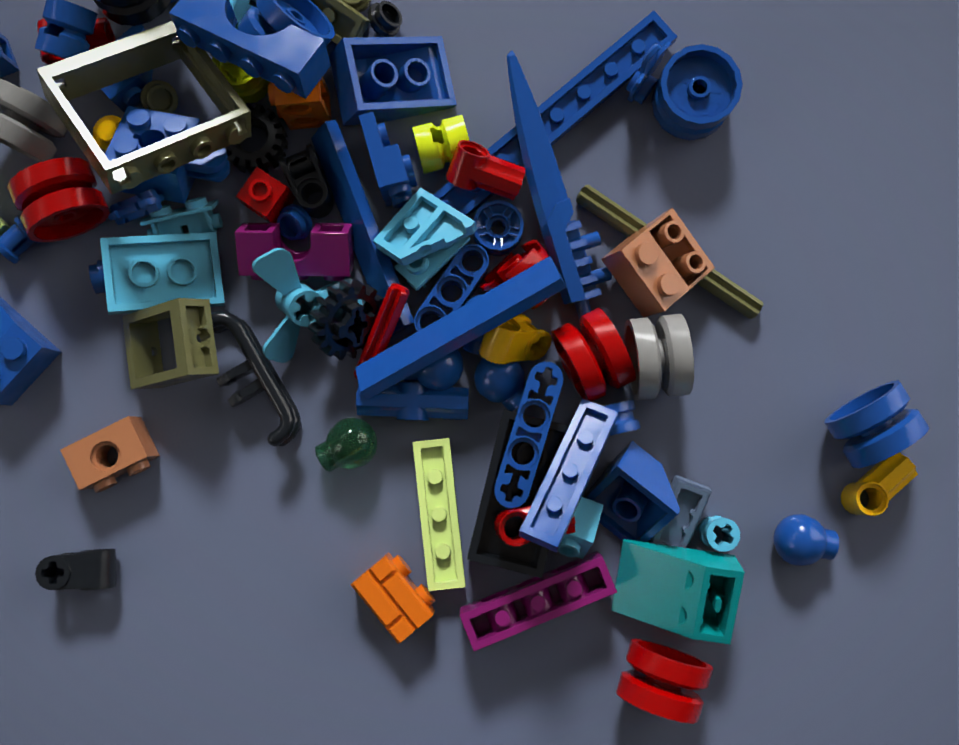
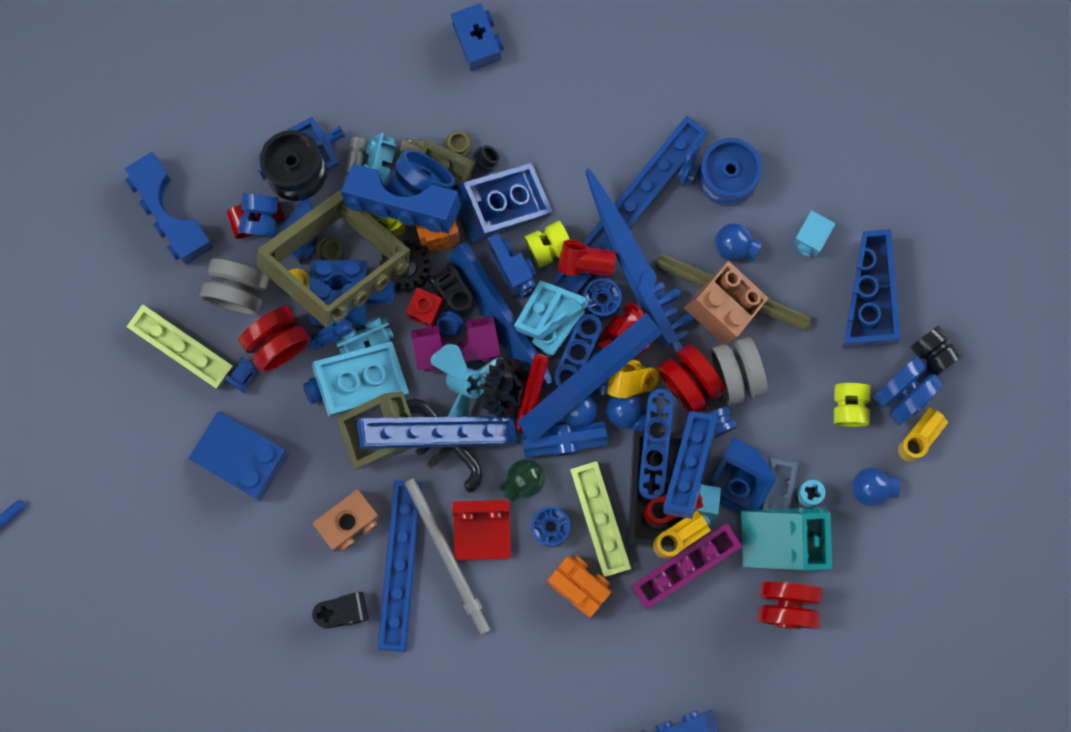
camera: 10 degrees left, 5 degrees down
(170, 525) = (399, 570): none -> blue tile
(235, 362) = (436, 432): none -> tile
(252, 593) = (472, 606): none -> light grey bar
(282, 499) = (481, 530): none -> red bracket
(358, 516) = (544, 516): none -> blue wheel
(540, 565) = (682, 534): none -> yellow piece
(686, 188) = (736, 243): none -> blue piece
(788, 195) = (813, 234): none -> medium azure brick
(793, 440) = (849, 414): none -> neon yellow wheel
(854, 291) = (874, 305): none -> blue wedge
(921, 378) = (936, 351): none -> black wheel

